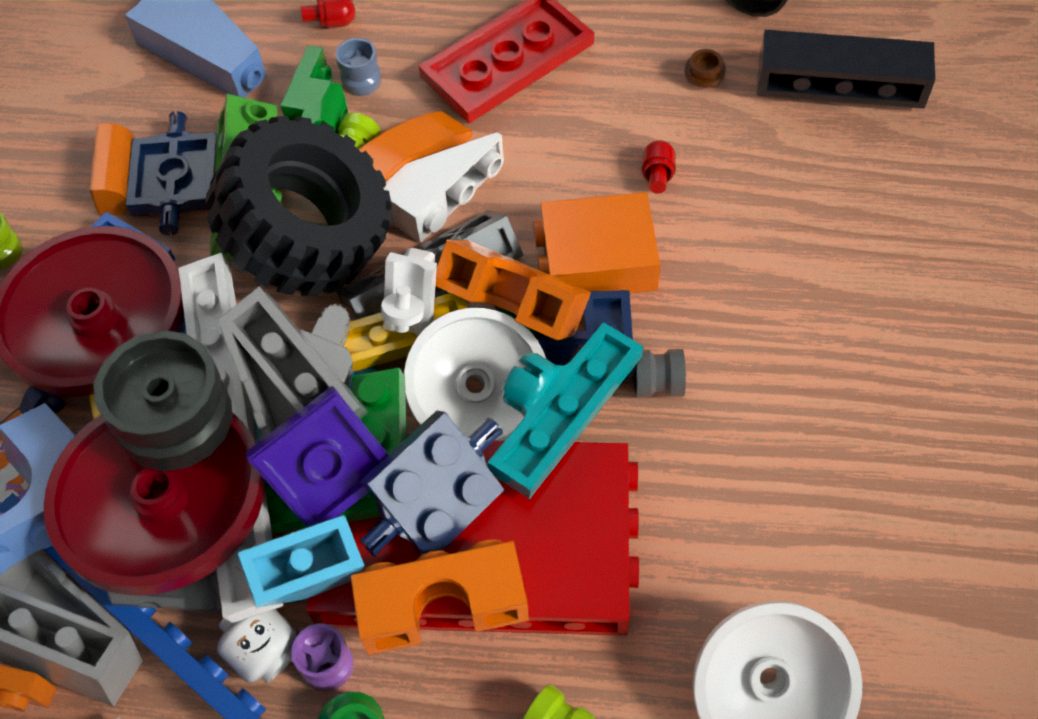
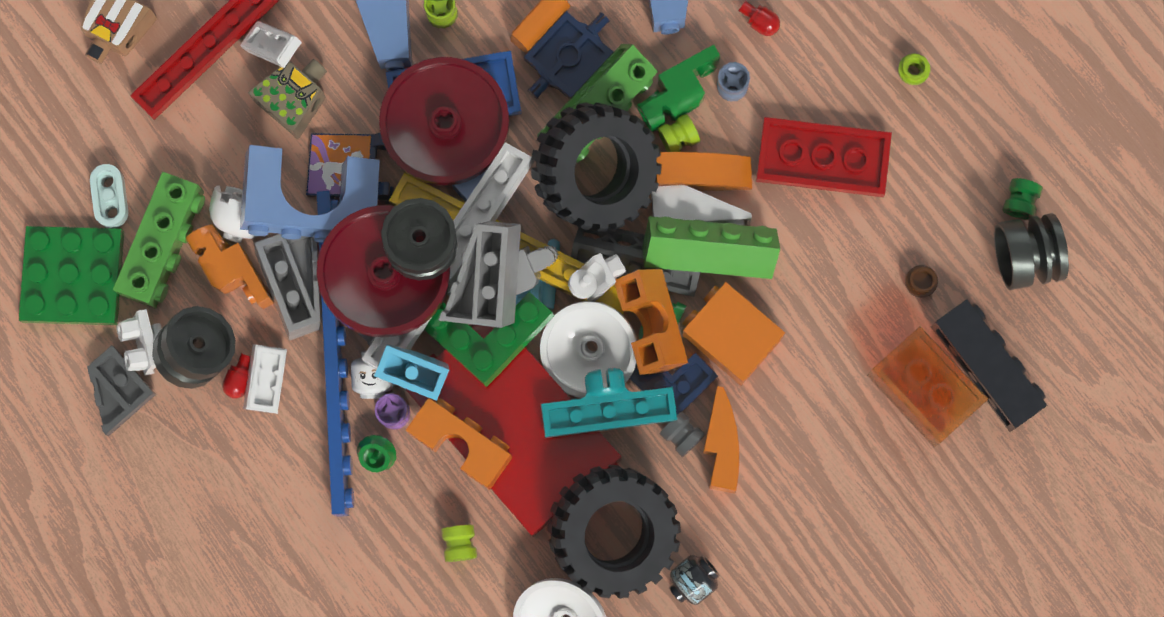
camera: 50 degrees right, 20 degrees up
(318, 458) = (464, 334): dark purple tile -> none
(432, 485) = (505, 390): plate -> none
(491, 186) = (710, 247): none -> bright green brick
(658, 165) = (823, 316): red cylinder -> none
(708, 343) = (723, 443): none -> orange slope
(757, 482) = (643, 561): none -> black tyre
(822, 125) = (927, 386): none -> clear orange slope
(841, 493) = (693, 579): none -> head

